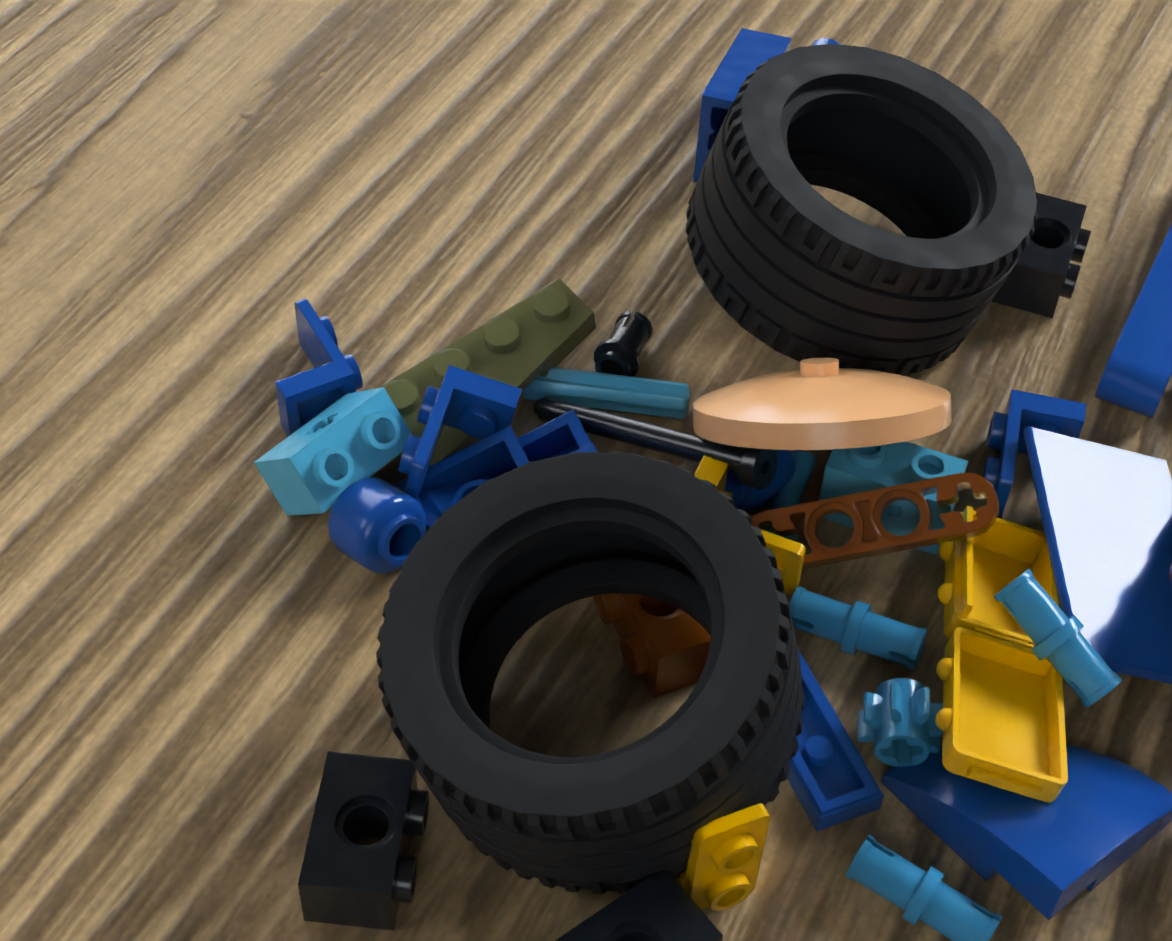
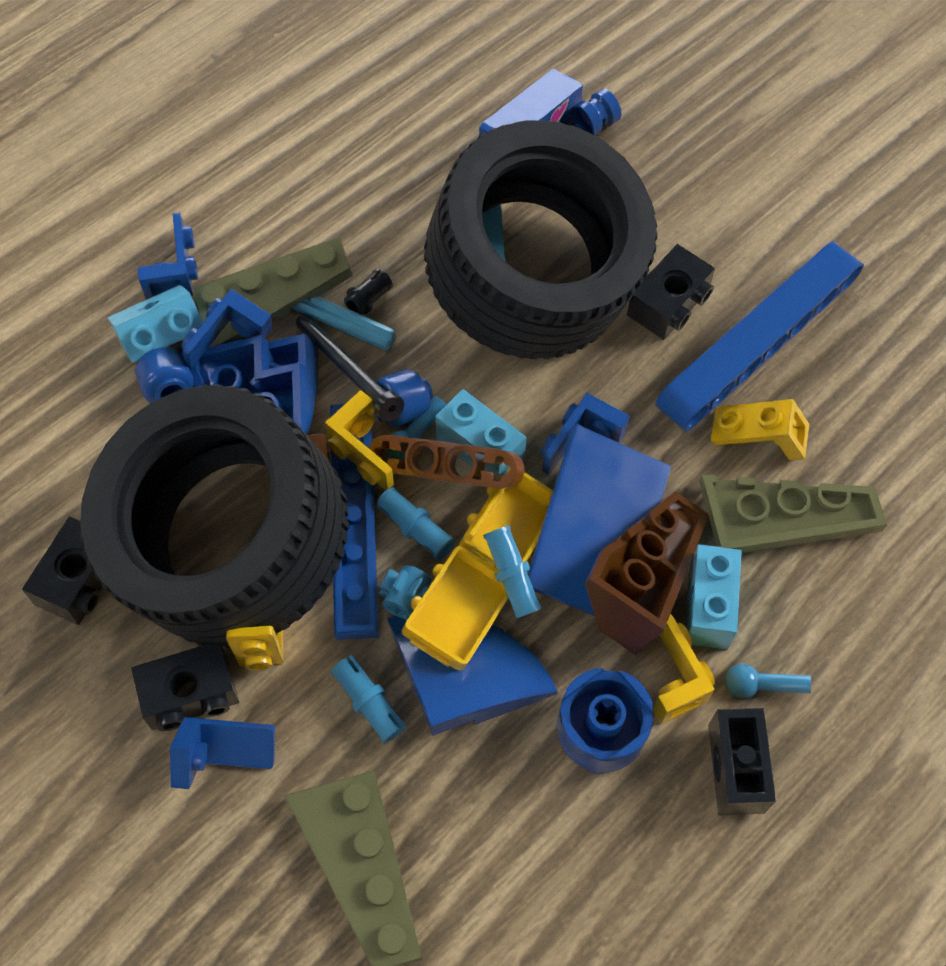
camera: 20 degrees right, 15 degrees up
(822, 409) = (448, 380): light nougat dish -> none

